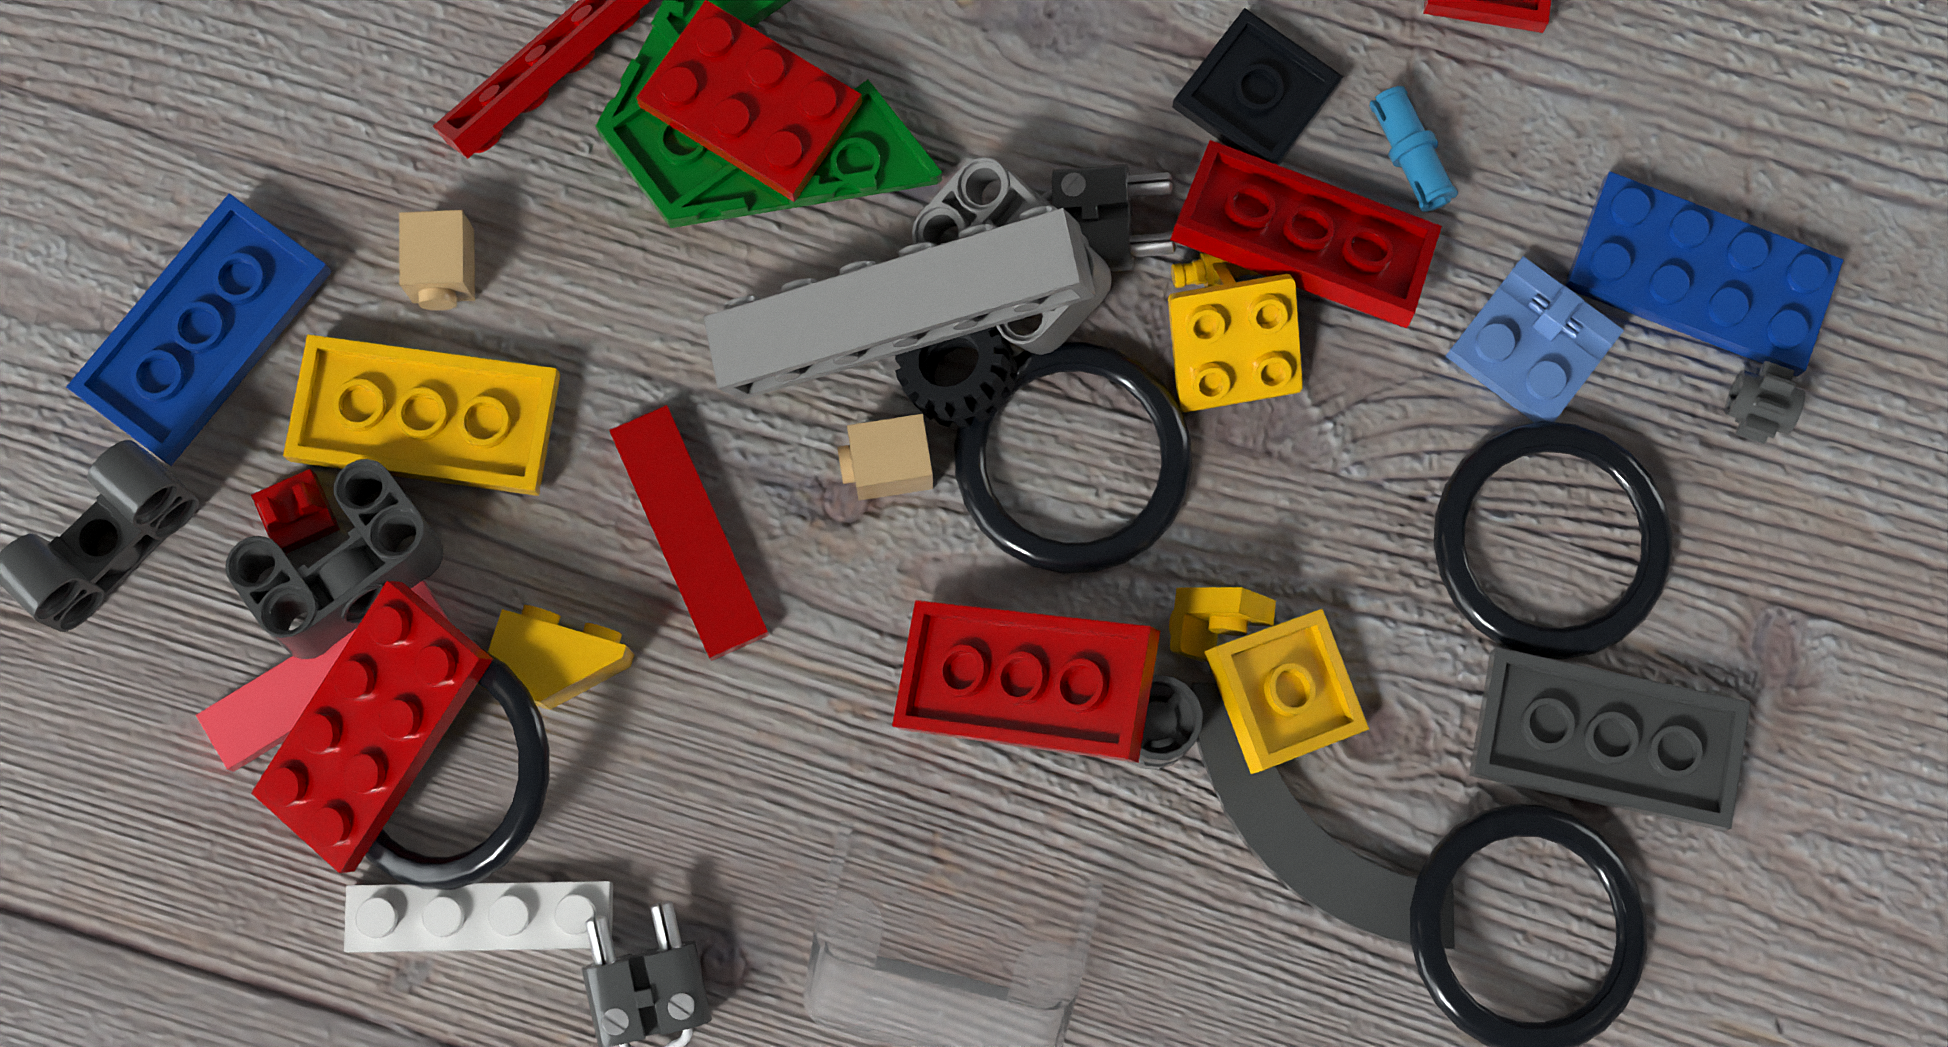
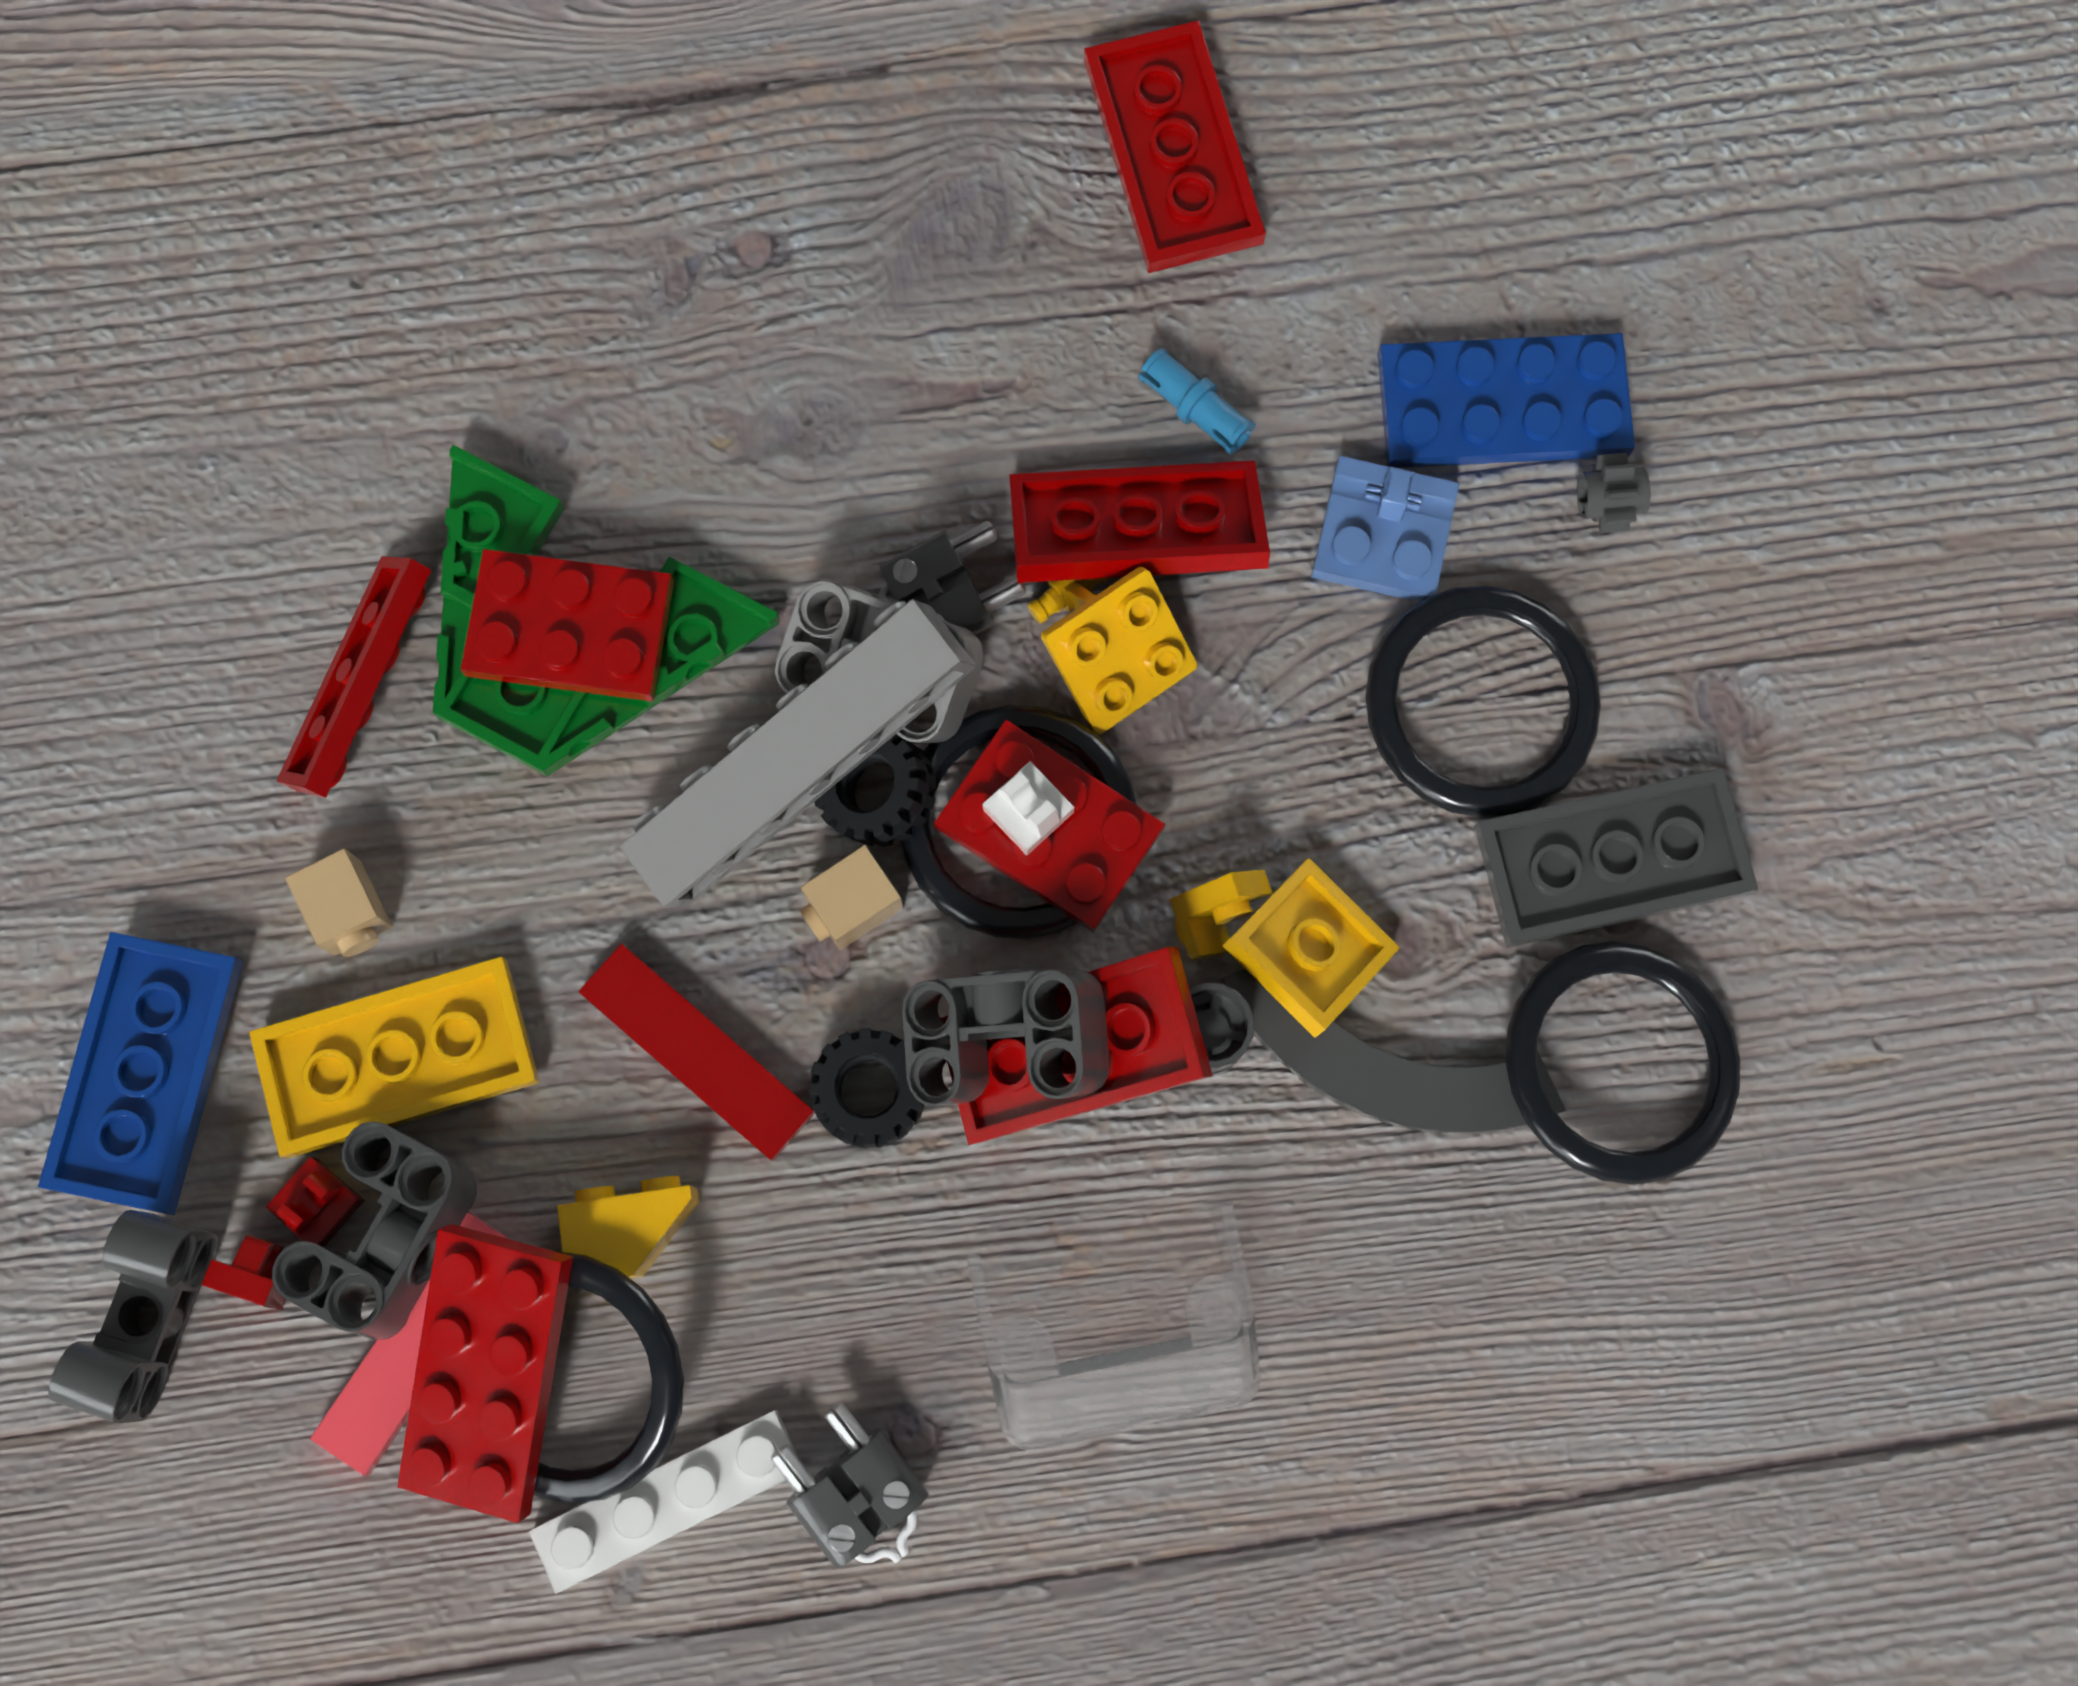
camera: 25 degrees left, 0 degrees up
(209, 545) = (249, 1274): none -> red tile
(807, 598) = (826, 1093): none -> black tyre
(978, 614) = (1004, 1007): none -> dark grey beam
(1084, 446) = (1028, 808): none -> white tile
(1098, 473) = (1082, 861): none -> red plate
(1257, 90) = (1030, 409): black tile -> none

